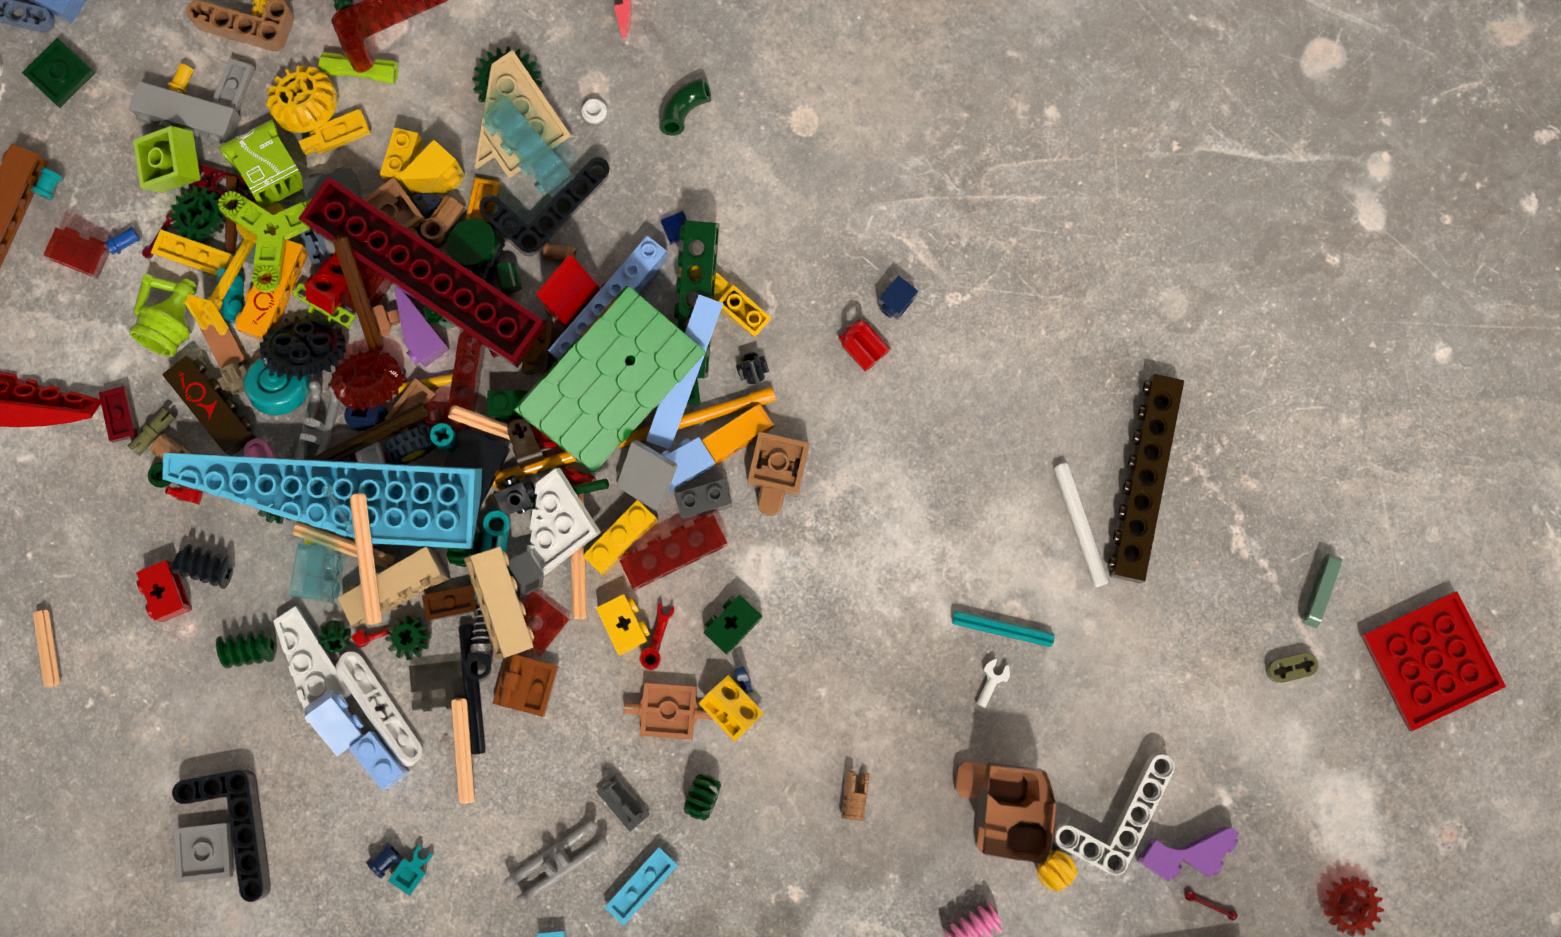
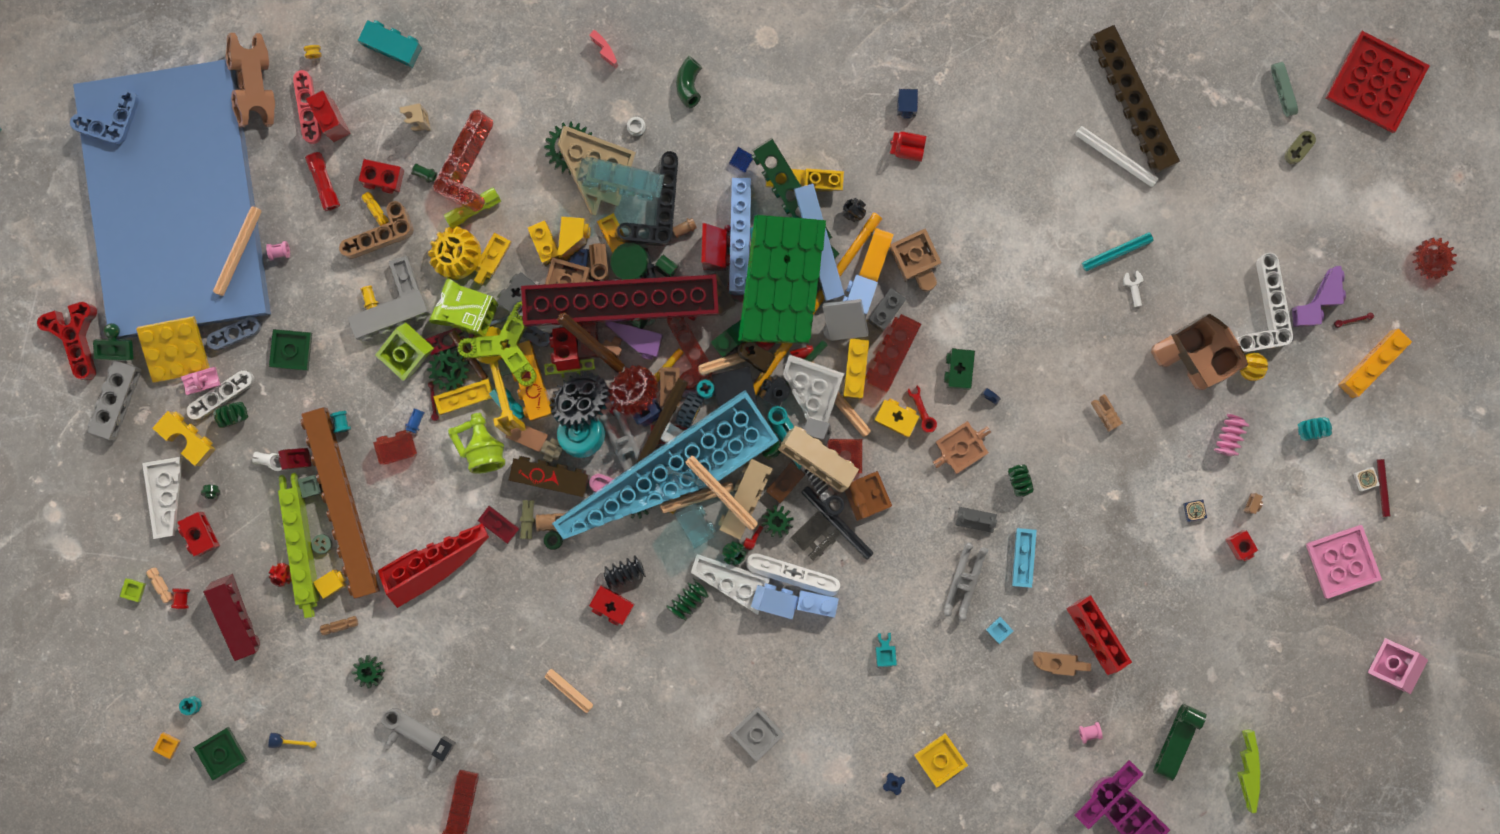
camera: 30 degrees left, 5 degrees up
(185, 494) = (577, 540): red piece -> none
(238, 823) = (764, 700): black beam -> none
(384, 860) = (865, 657): dark blue bush -> none
(462, 750) = (861, 560): light nougat axle -> none
(731, 708) = (998, 417): yellow brick -> none

